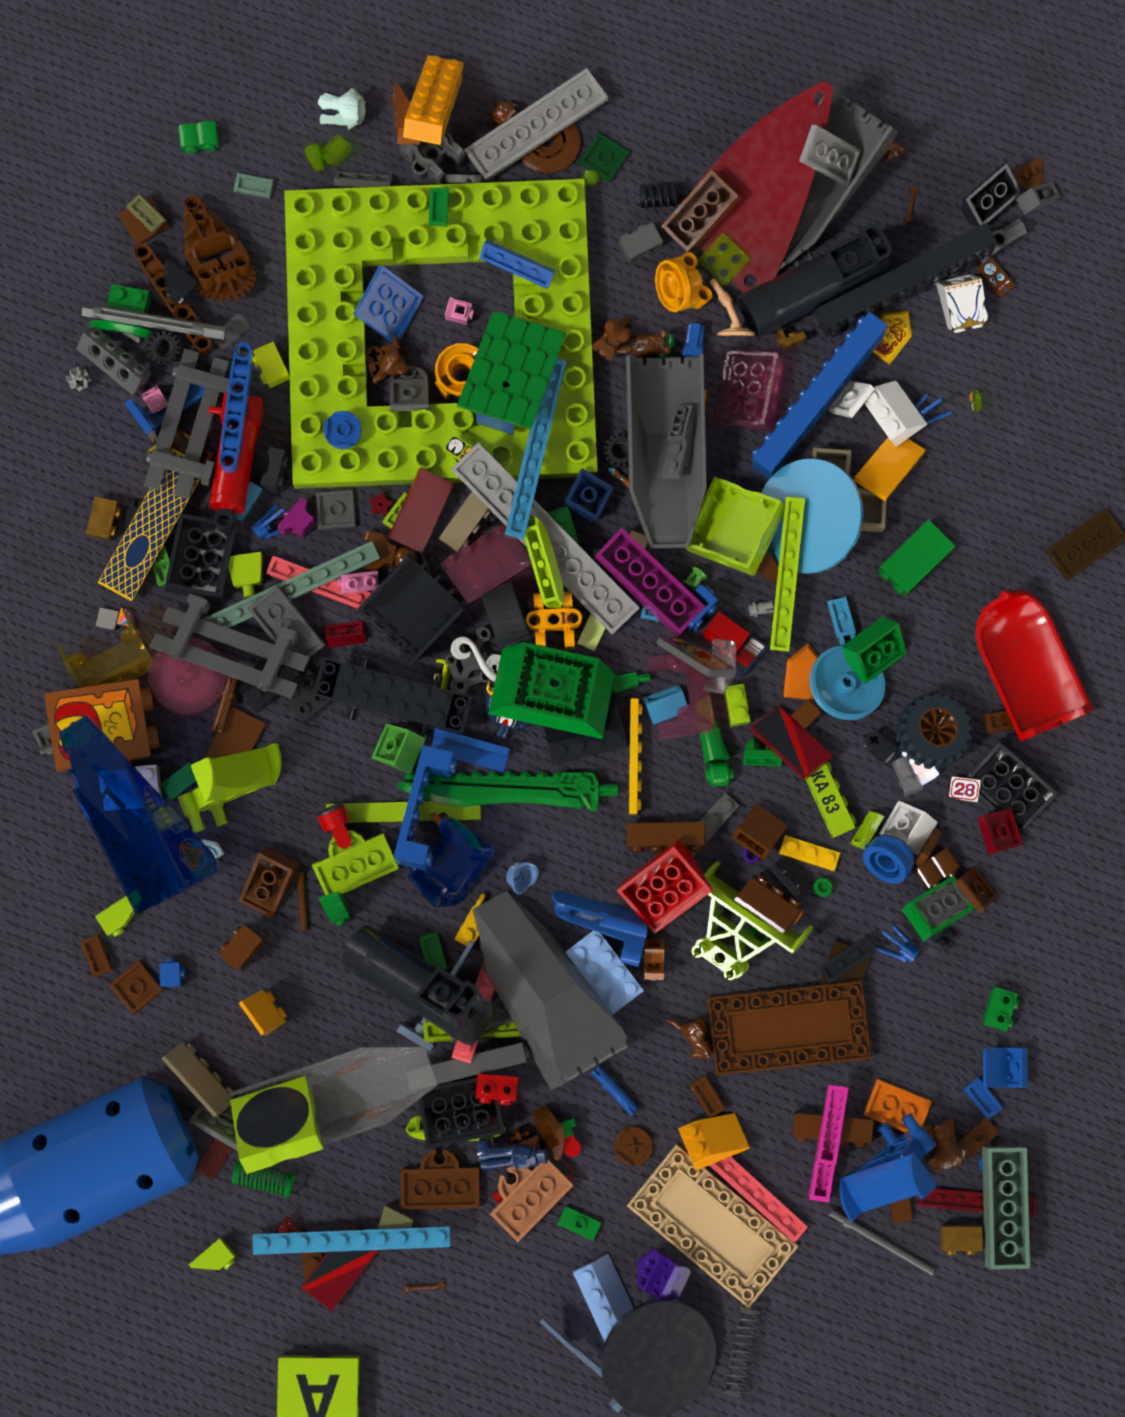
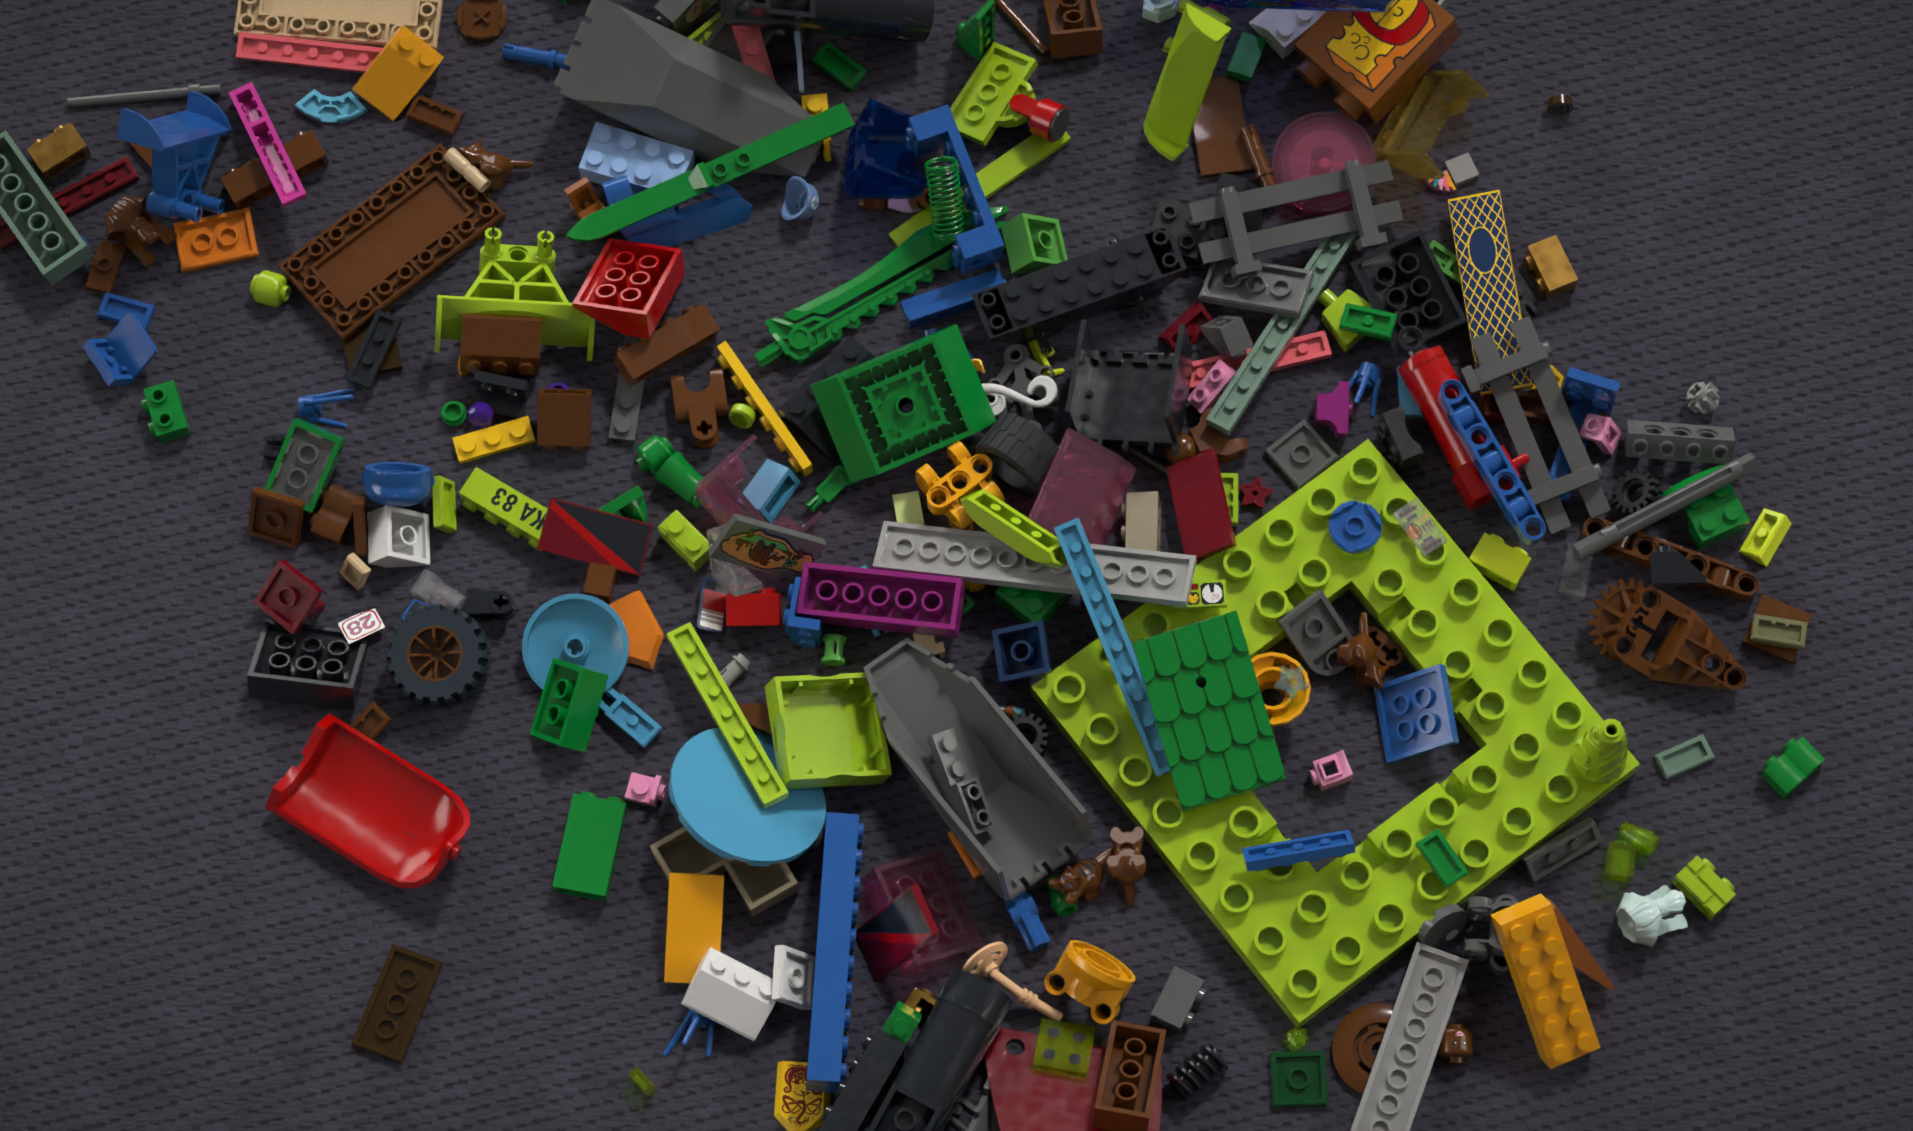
camera: 150 degrees right, 10 degrees down
(18, 617) = (1559, 104): none -> tile
(102, 279) = (1765, 536): none -> neon yellow slope
(238, 553) = (1368, 322): none -> green plate
(301, 105) = (1704, 887): none -> lime brick
(303, 199) = (1602, 752): none -> lime cone
(305, 404) = (1420, 527): none -> clear tile
(327, 607) = (1228, 335): none -> dark grey slope
(422, 807) = (945, 170): none -> green piece
(448, 367) = (1291, 688): none -> clear light blue plate
(566, 923) = (712, 174): none -> green piece
(650, 762) = (742, 415): none -> lime tile
(671, 783) = (701, 407): none -> reddish brown piece
(713, 1043) = (465, 168): none -> tan piece
(769, 1149) = (330, 109): none -> medium azure tile
(776, 377) = (897, 932): none -> tile
(808, 326) = (902, 1022): none -> green brick
(808, 873) = (480, 415): none -> dark purple tile
(860, 572) = (645, 789): none -> bright pink bracket
(884, 1048) = (270, 288): none -> lime head
(948, 824) = (355, 571): none -> tan tile

